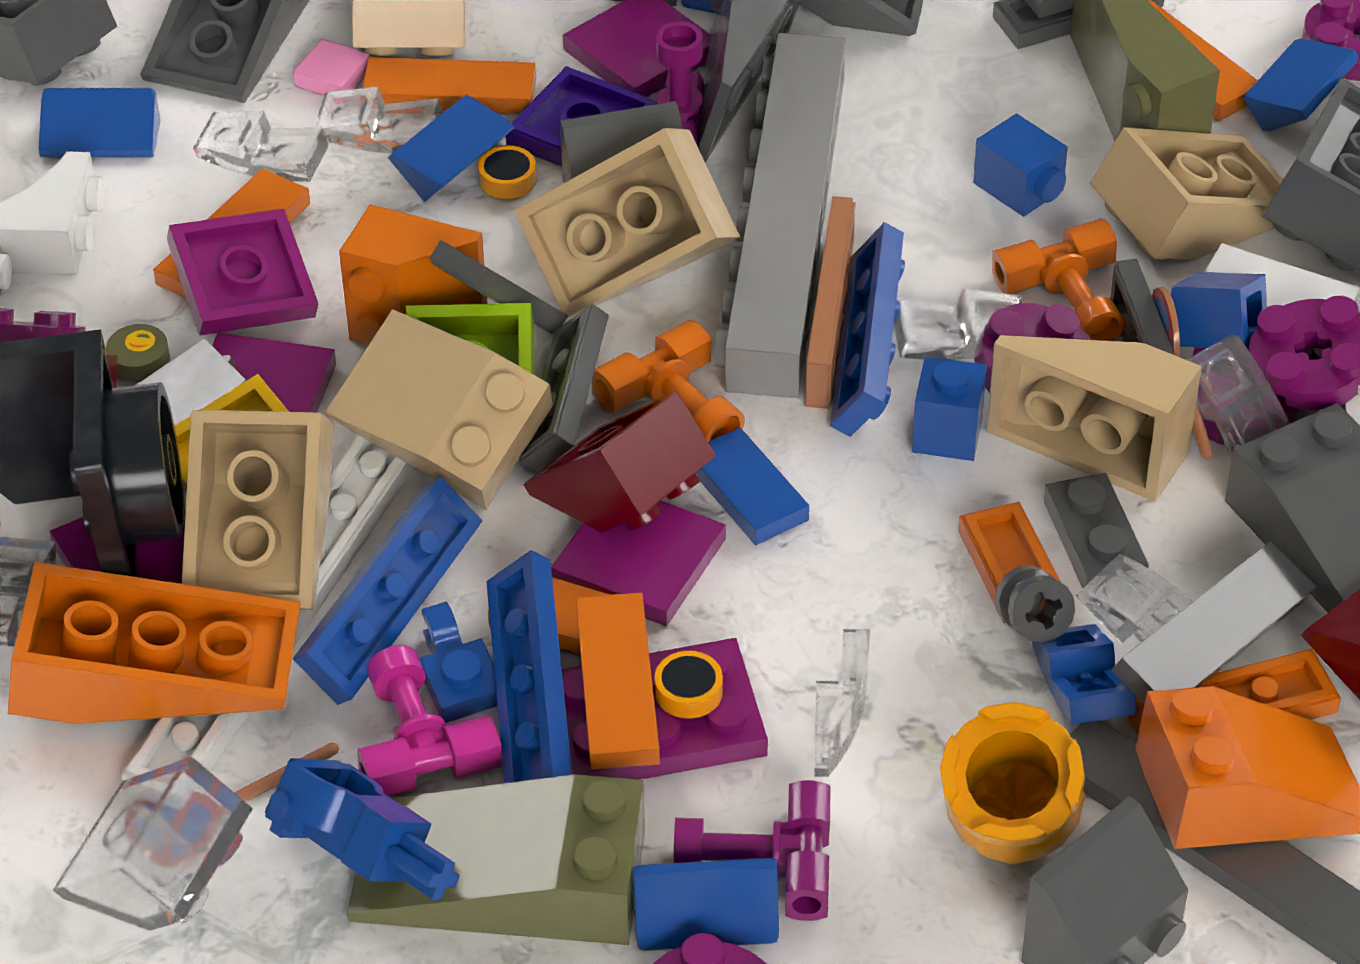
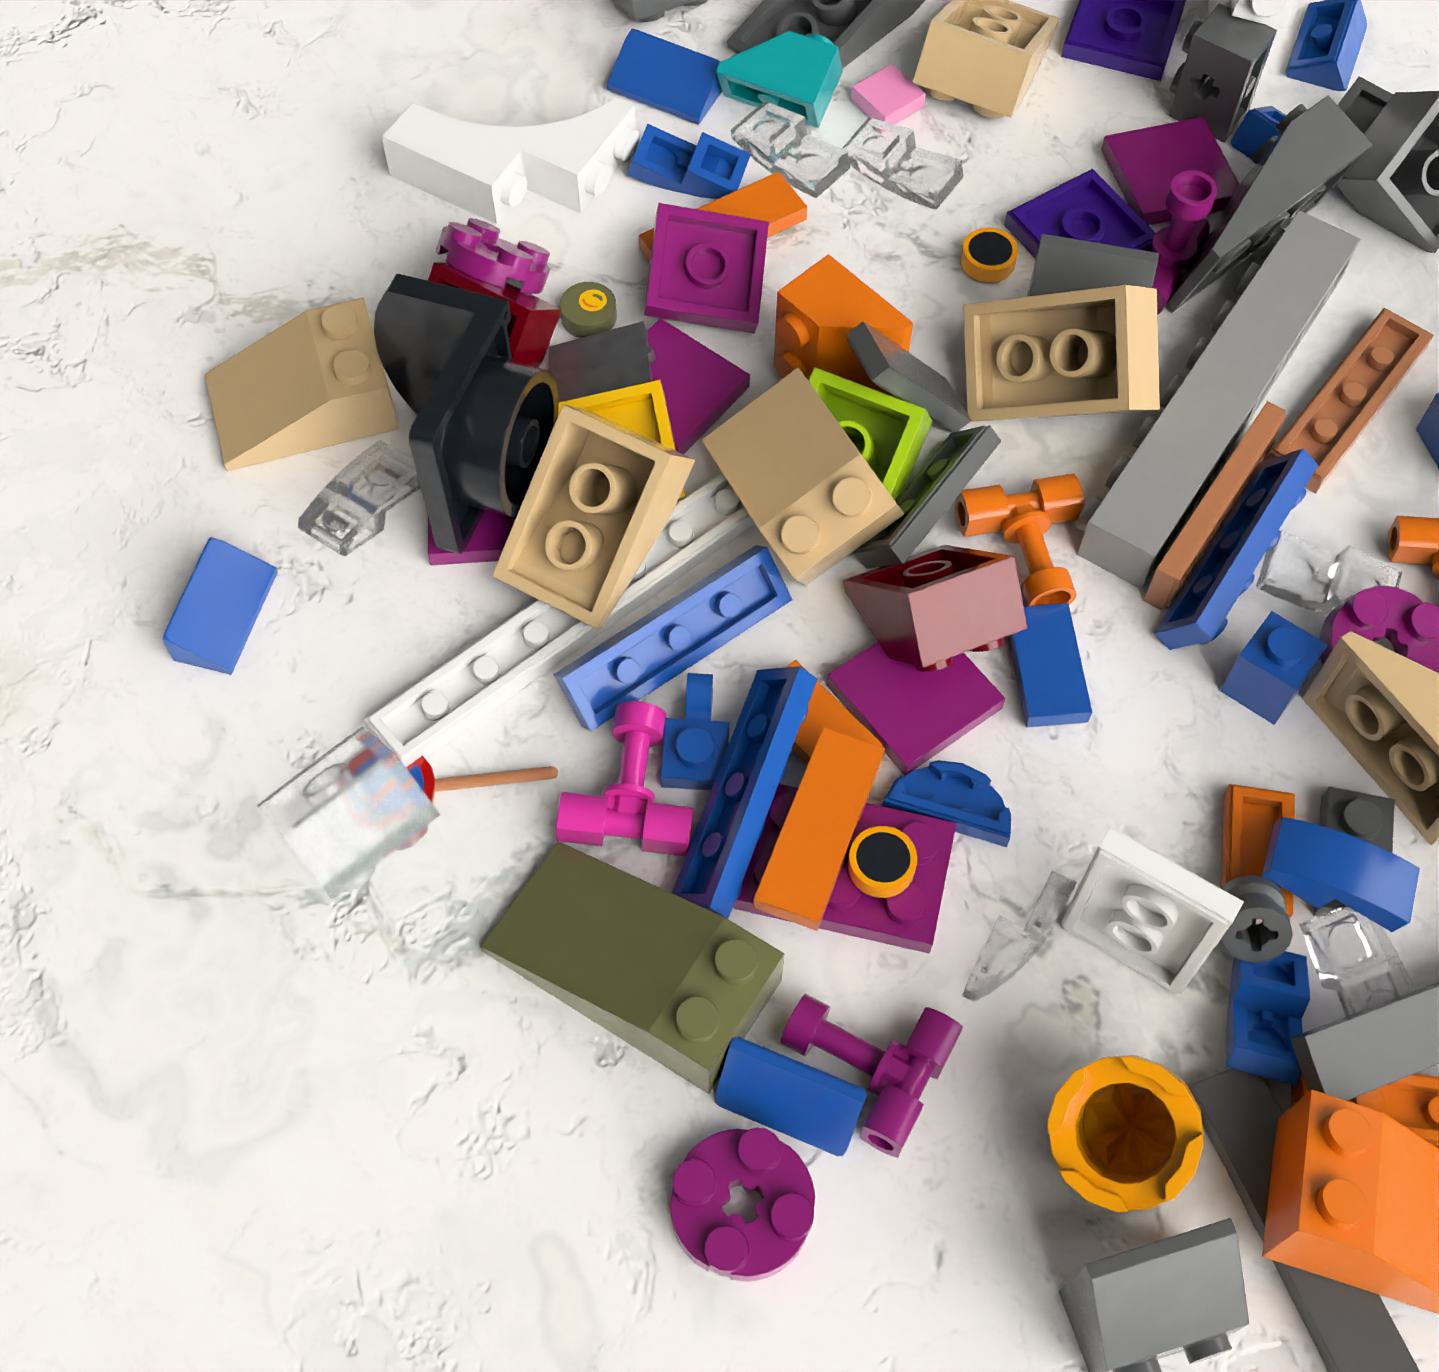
camera: 25 degrees right, 15 degrees up
(146, 649) = (438, 611): orange slope -> none
(183, 193) = (677, 165): none -> blue slope
(222, 76) = (787, 72): none -> teal slope
(358, 825) = (514, 861): blue piece -> none
(449, 145) = (948, 210): blue slope -> none
(496, 84) = (986, 149): orange tile -> none
(725, 616) = (956, 795): none -> blue tile
(905, 168) = (1354, 393): none -> nougat tile
(943, 616) = (1149, 911): none -> white tile
(1073, 533) = (1333, 865): none -> blue slope

